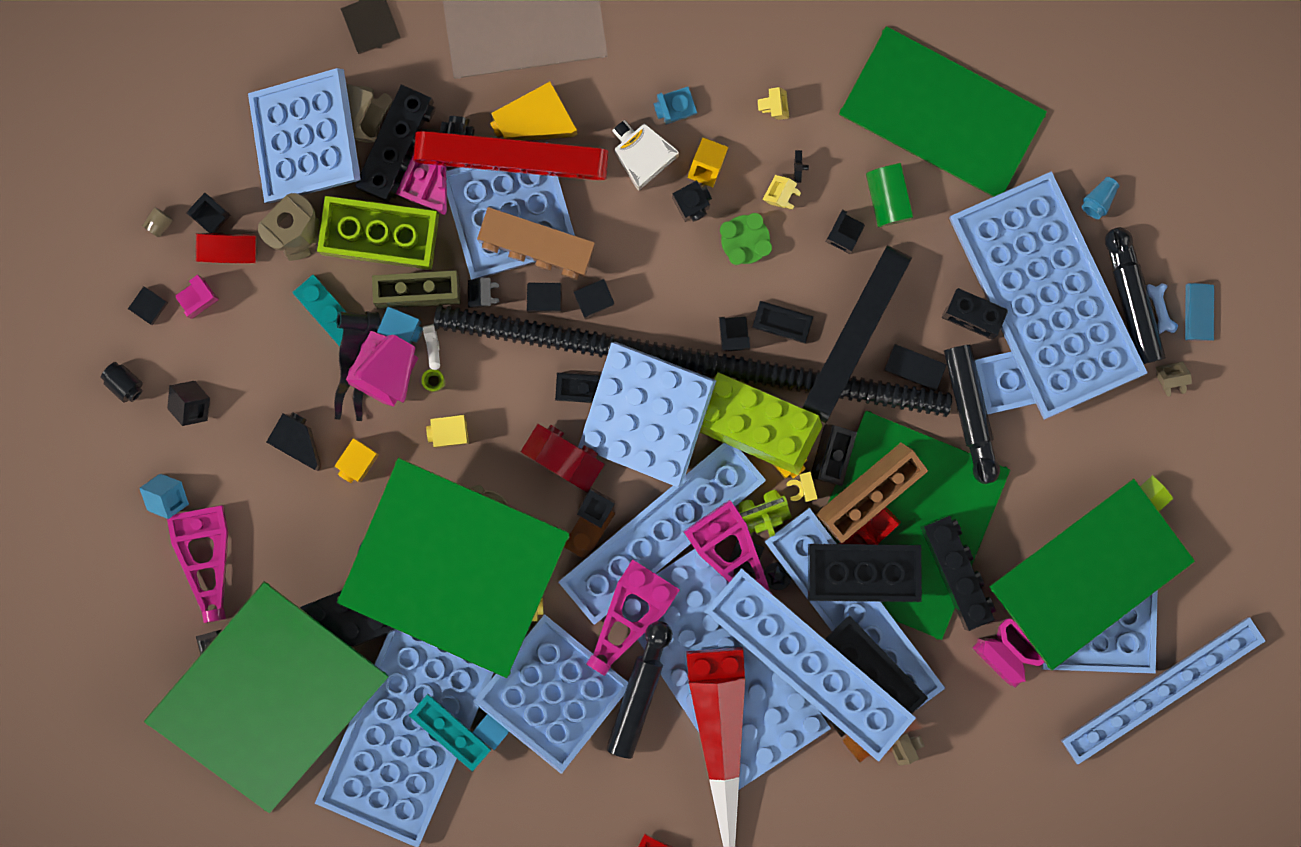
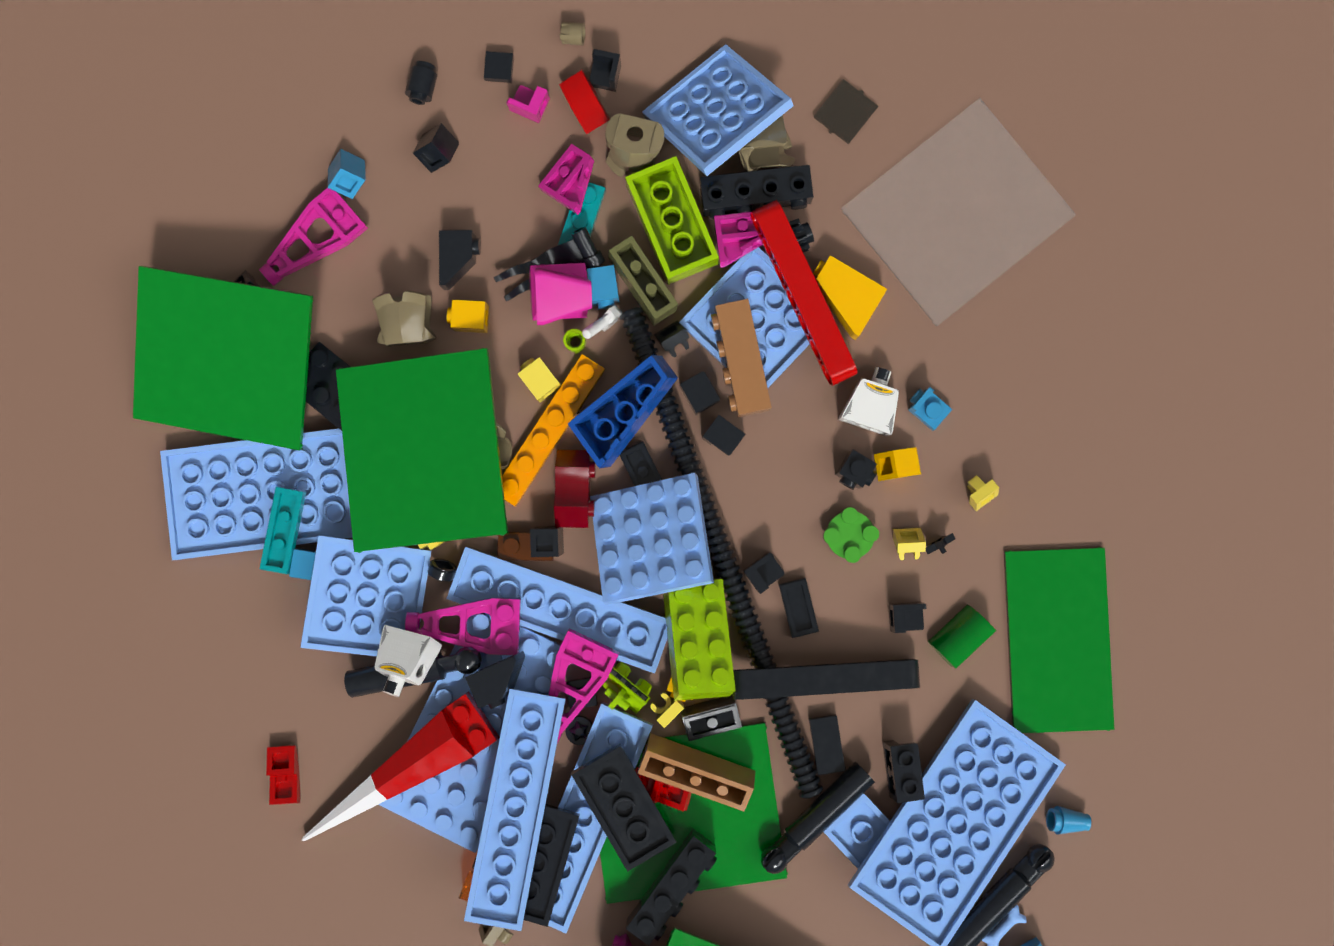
camera: 65 degrees right, 0 degrees up
(286, 301) = (569, 178): none -> dark pink wing
(325, 518) = (404, 318): none -> dark tan piece
(496, 445) = (550, 428): none -> light orange plate
(521, 377) = (621, 411): none -> blue wedge
(566, 613) = (442, 569): none -> black tile
(624, 685) = (404, 658): none -> white torso
(691, 620) = (494, 681): none -> black slope

